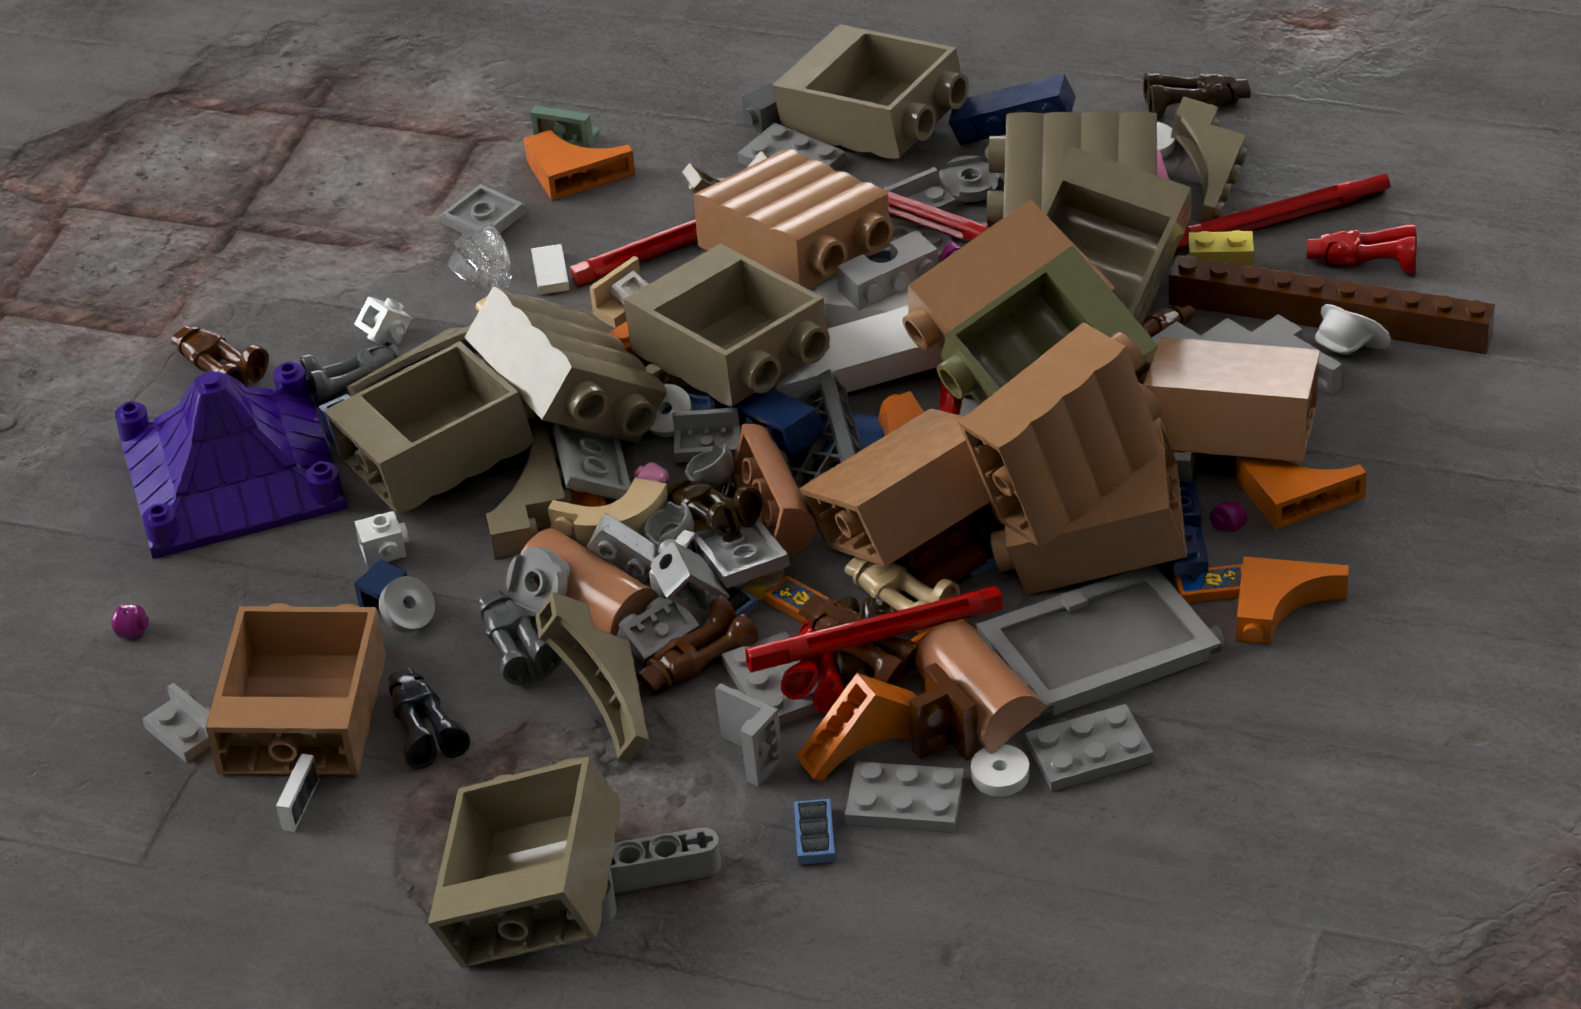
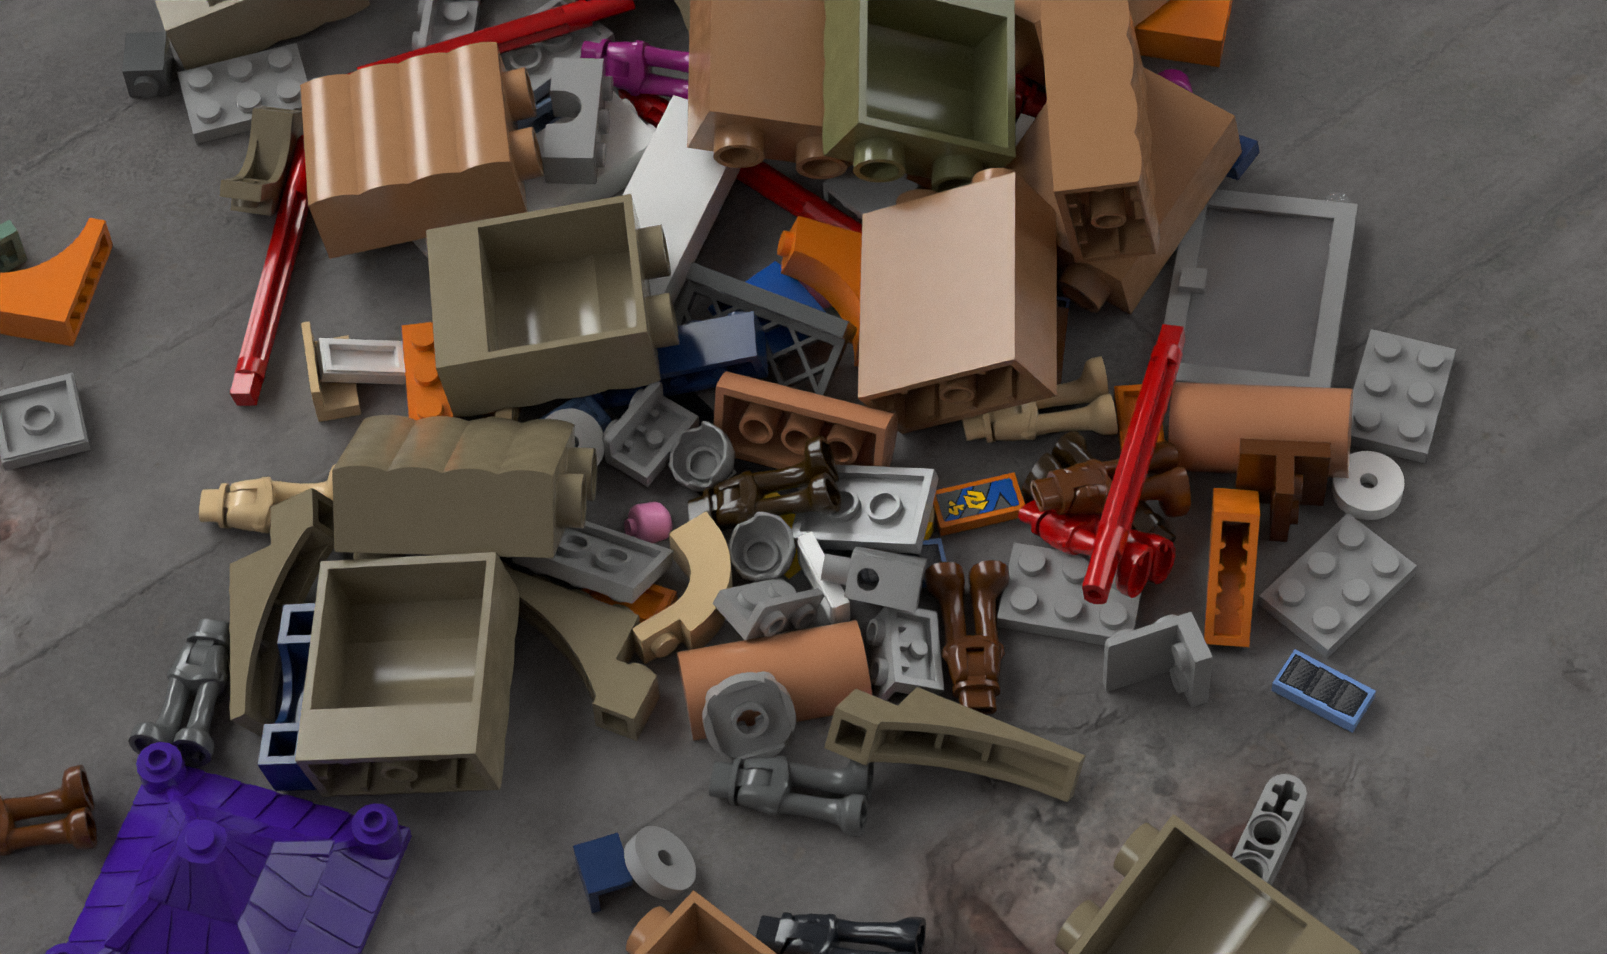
camera: 55 degrees left, 15 degrees up
(381, 538) = (525, 828): white brick -> none
(383, 320) = (144, 634): white brick -> none
(482, 259) = (141, 466): clear piece -> none
(550, 269) = (202, 414): white tile -> none
(1218, 584) = (1273, 148): tile -> none
(1278, 587) = (1322, 125): orange arch -> none

